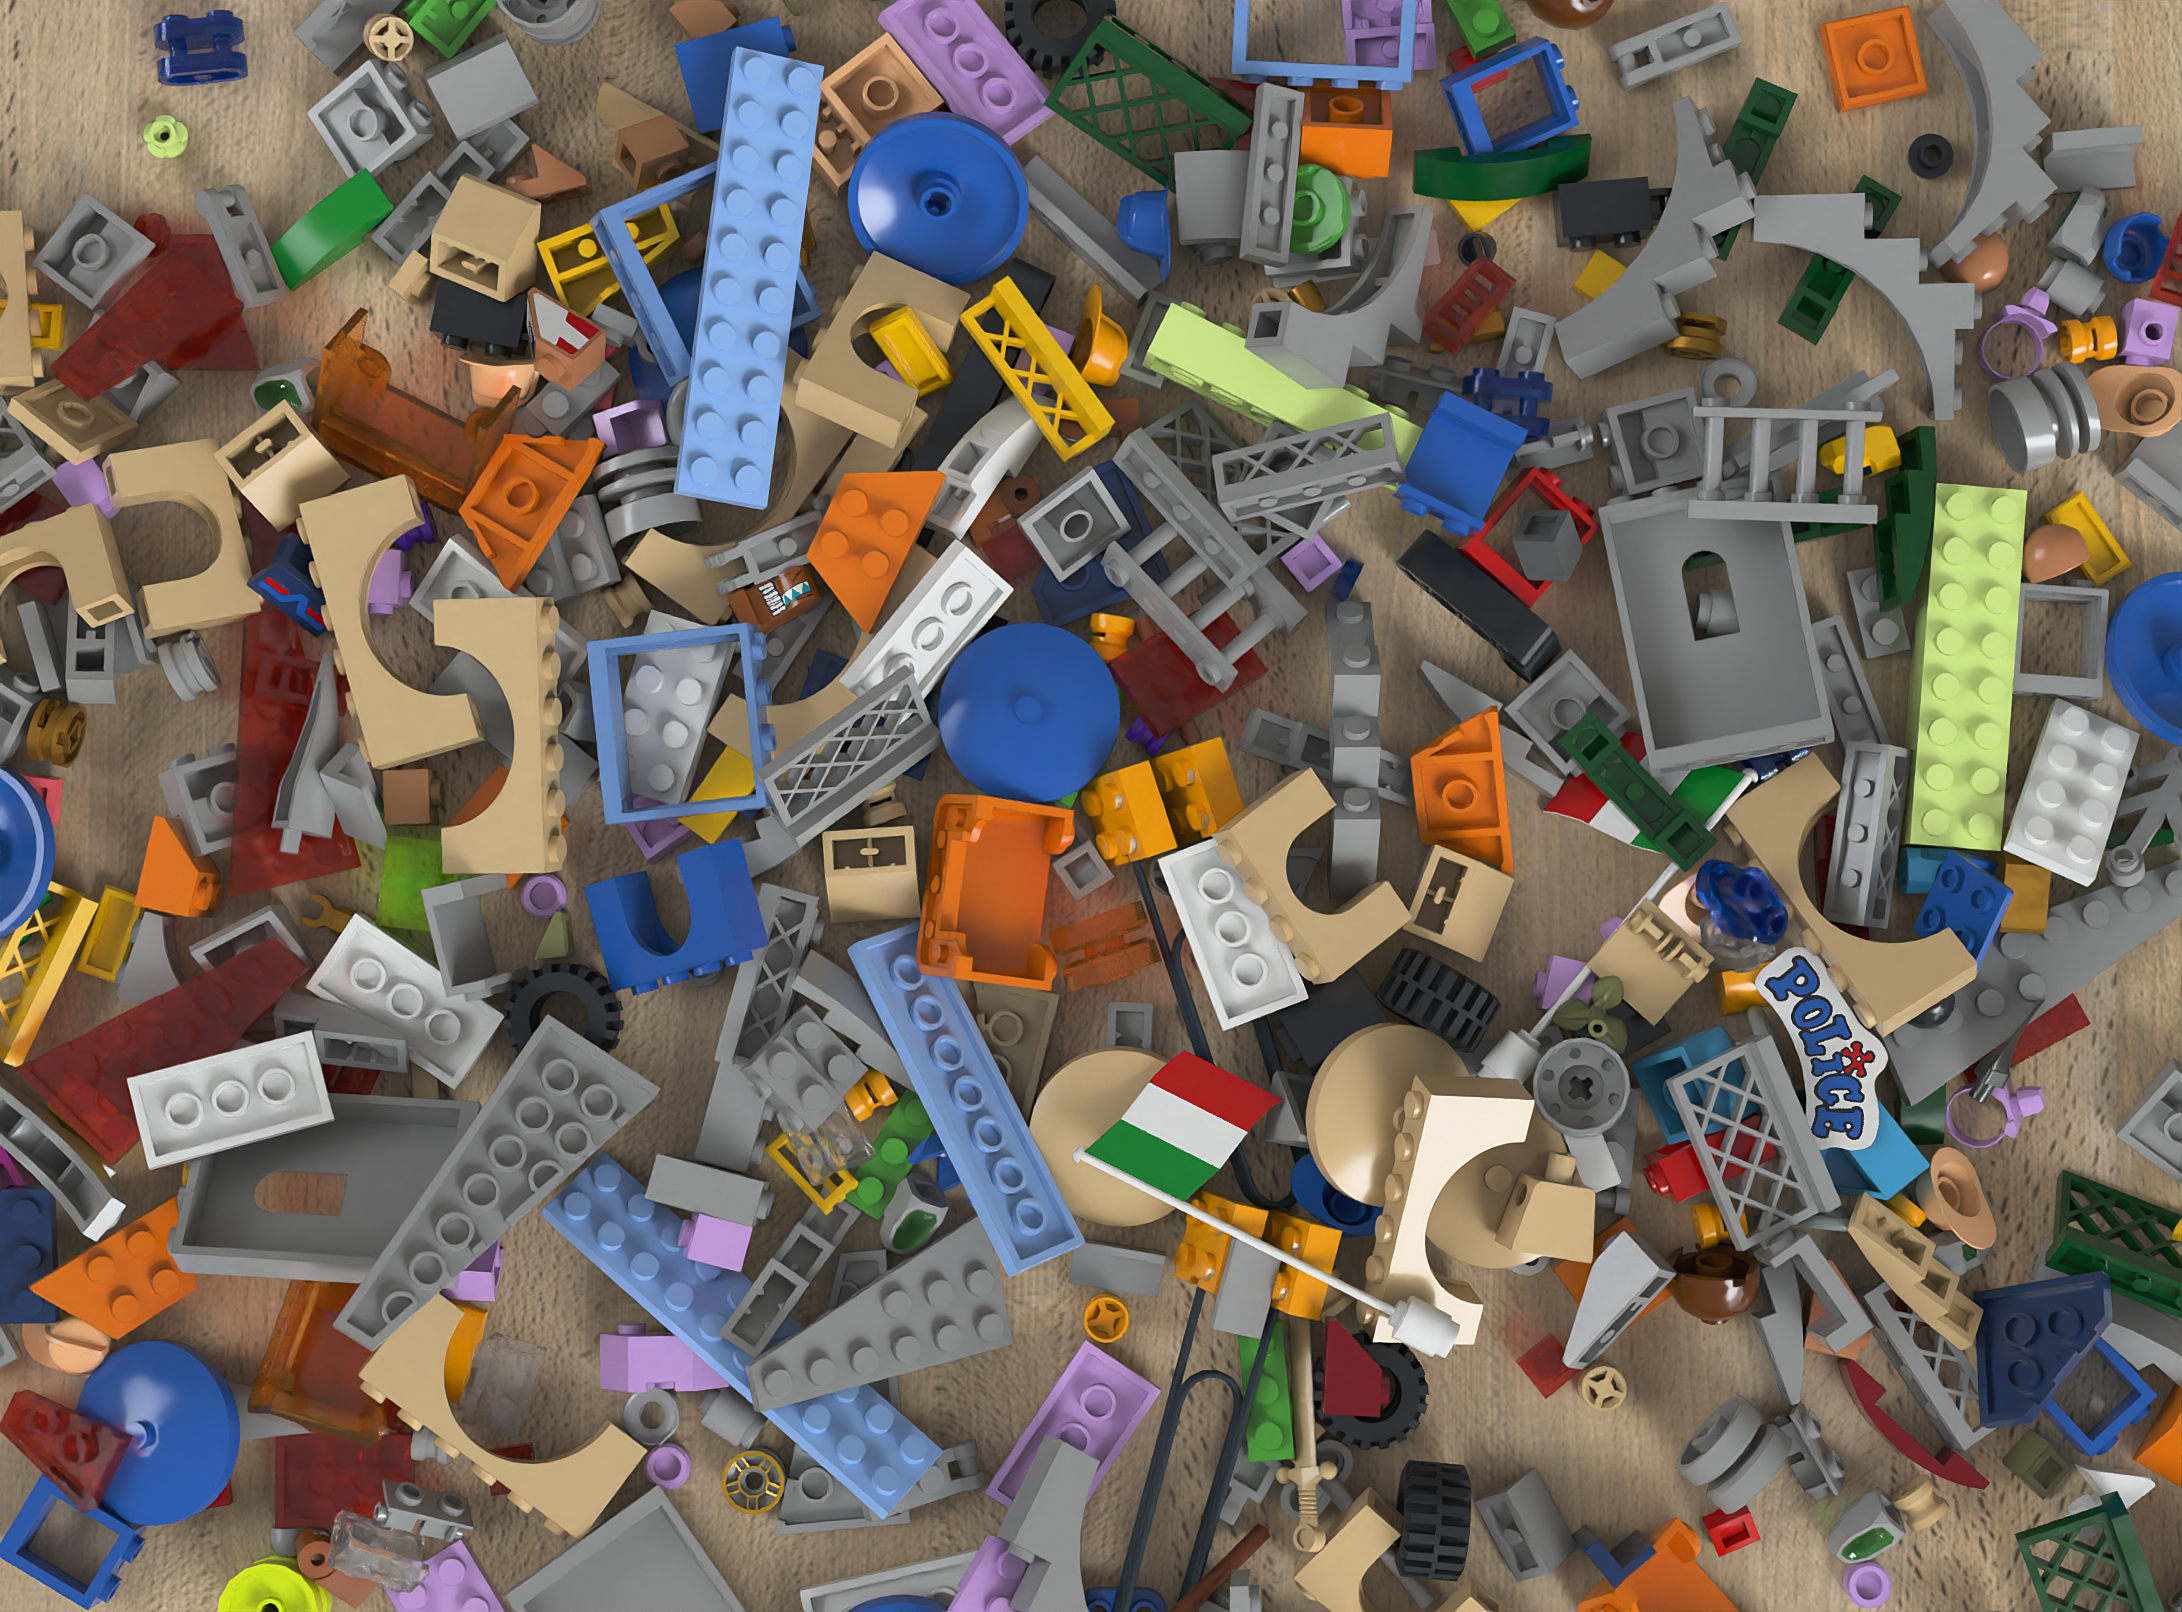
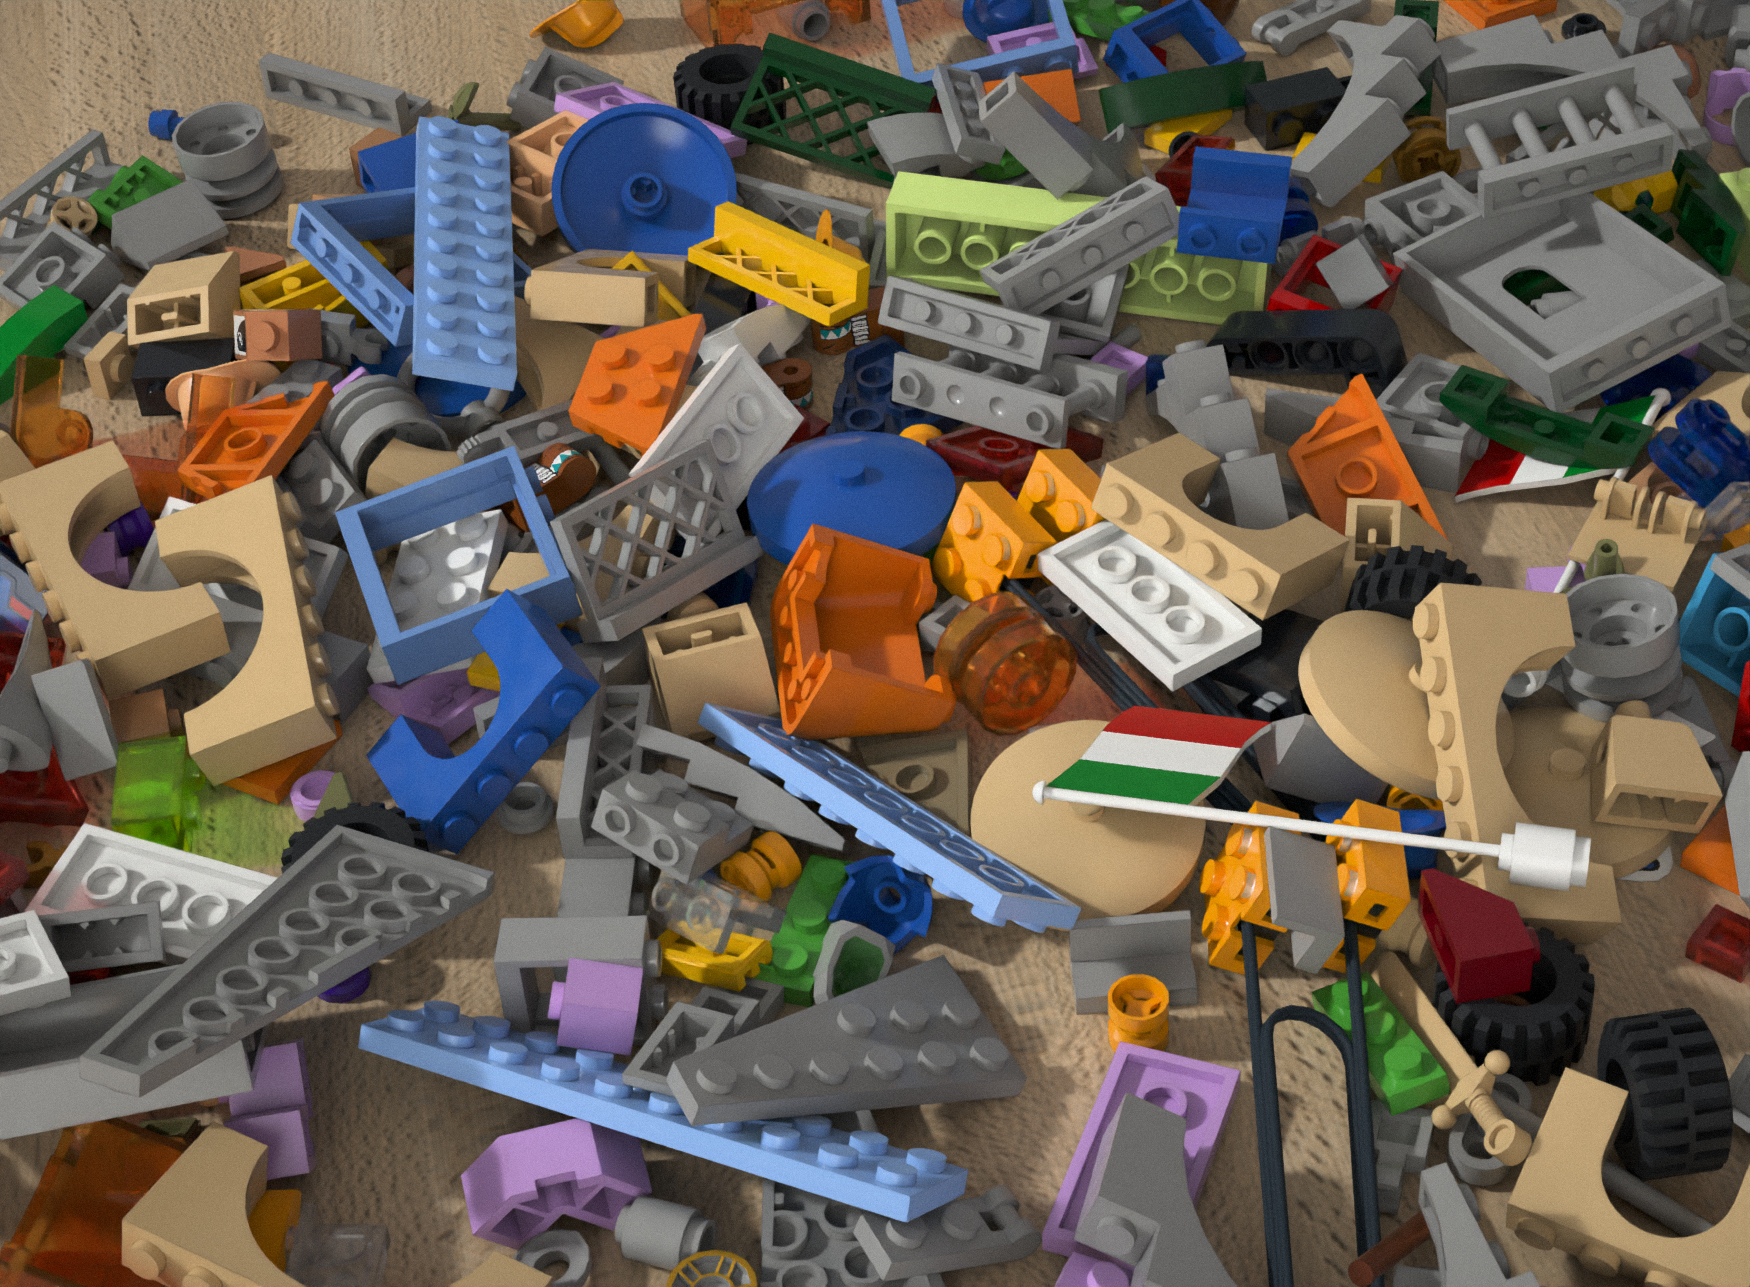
camera: 10 degrees left, 45 degrees down
(462, 938) = (221, 788): light grey panel -> none
(576, 711) = (343, 608): light grey rock -> none
(1073, 524) = (844, 362): light grey slope -> none
(1145, 226) = (863, 179): blue piece -> none

